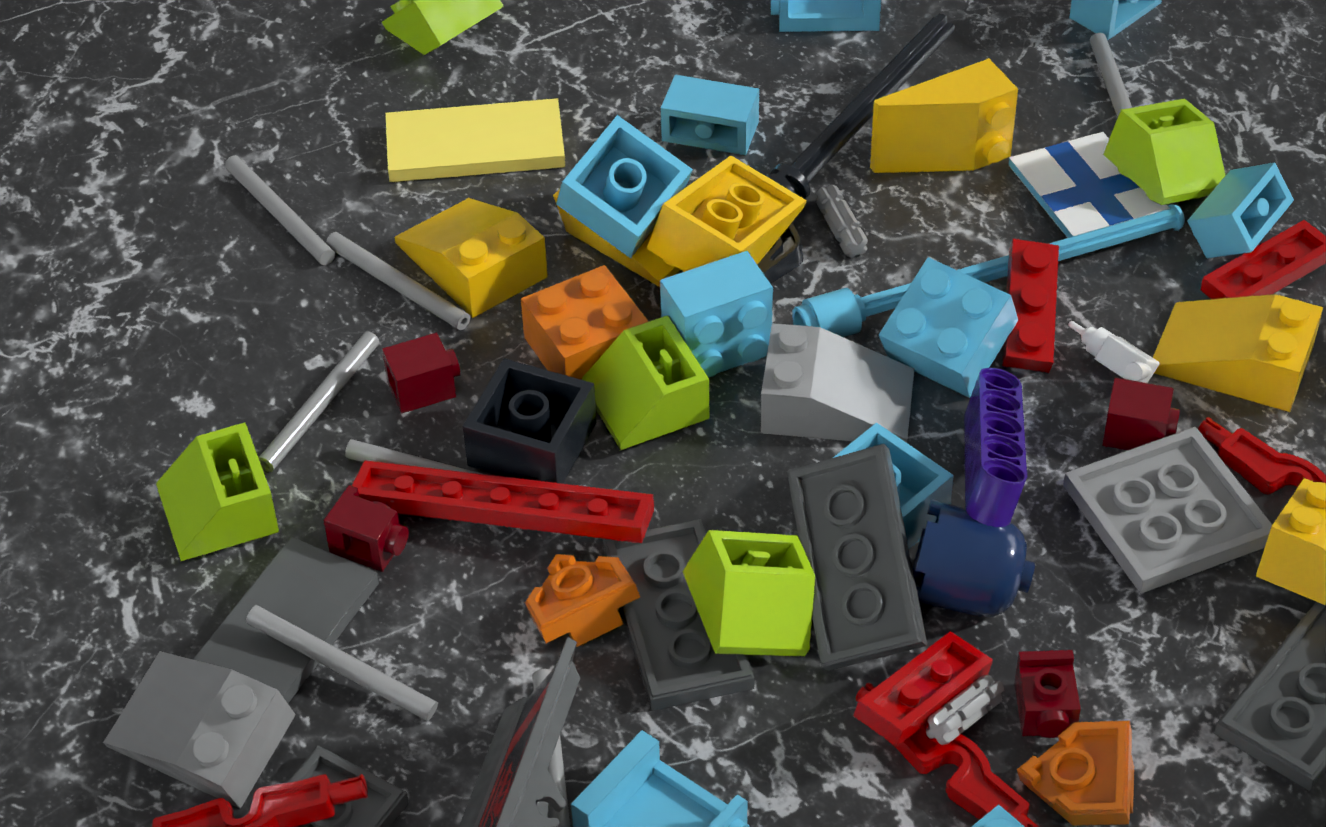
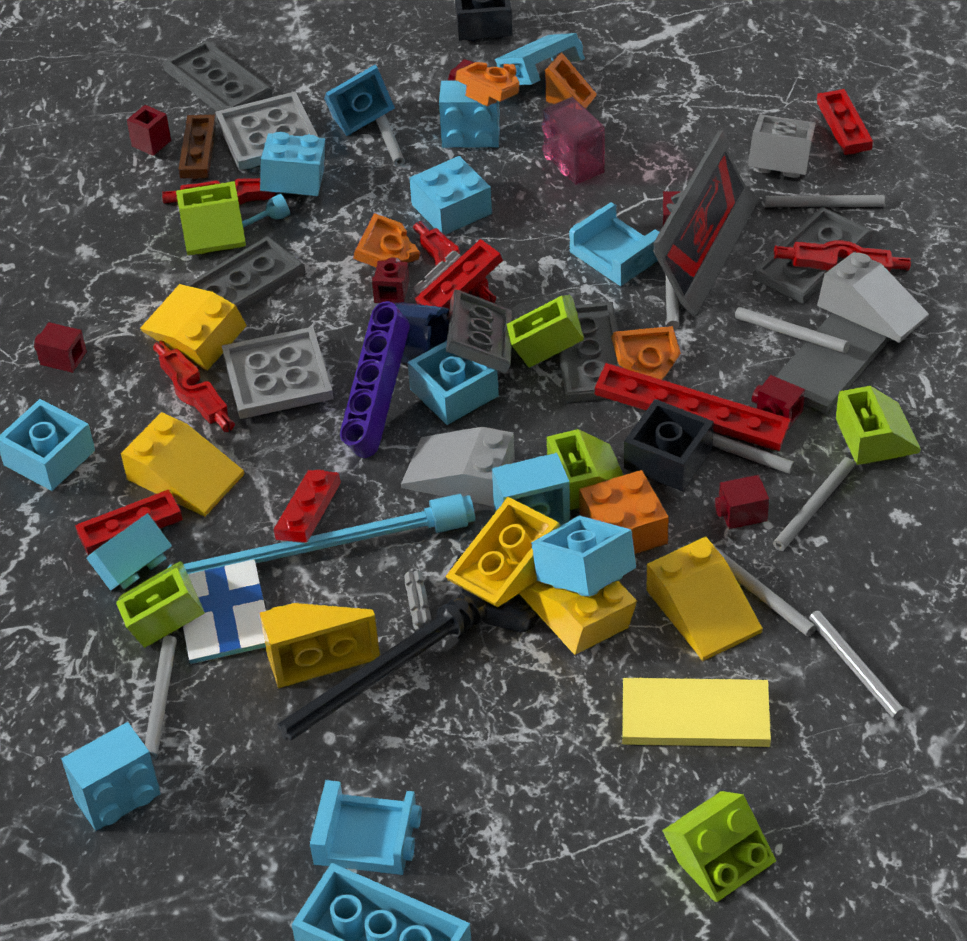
camera: 170 degrees left, 0 degrees up
(710, 114) = (498, 699): medium azure brick -> none
(949, 326) = (373, 476): medium azure brick -> none
(1117, 353) = (261, 464): white piece -> none
(1139, 414) = (270, 423): dark red brick -> none

